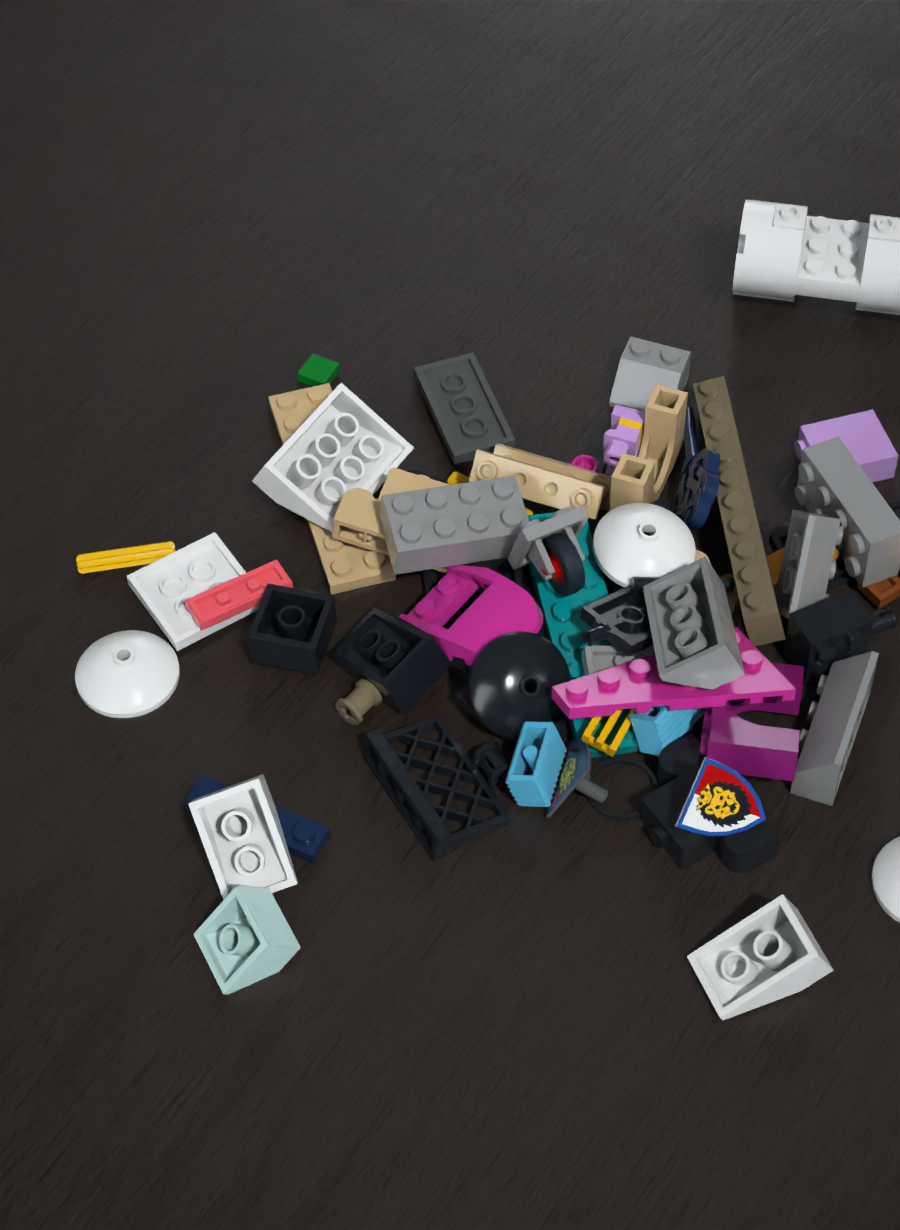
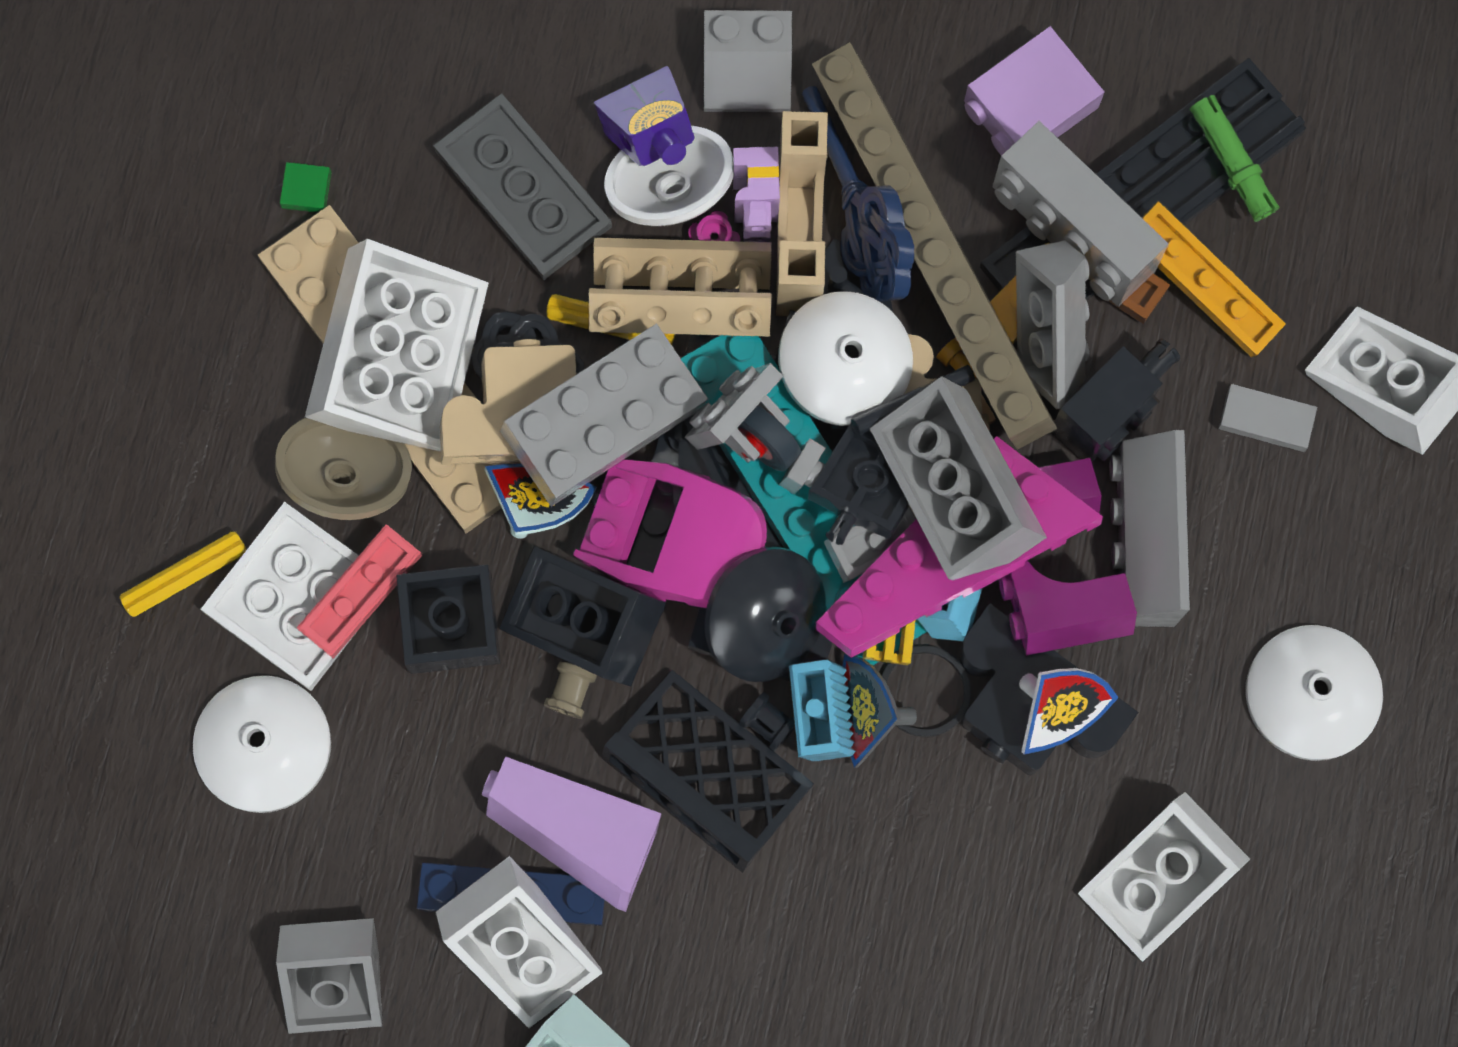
camera: 25 degrees left, 25 degrees up
(99, 823) = (330, 975): none -> light grey slope
(261, 521) = (341, 470): none -> dark tan dish
(322, 783) = (575, 827): none -> lavender slope
(378, 571) = (525, 504): none -> shield
(566, 388) = (647, 119): none -> dark purple torso
(566, 424) = (671, 193): none -> white dish
(582, 596) = (804, 468): none -> light grey plate

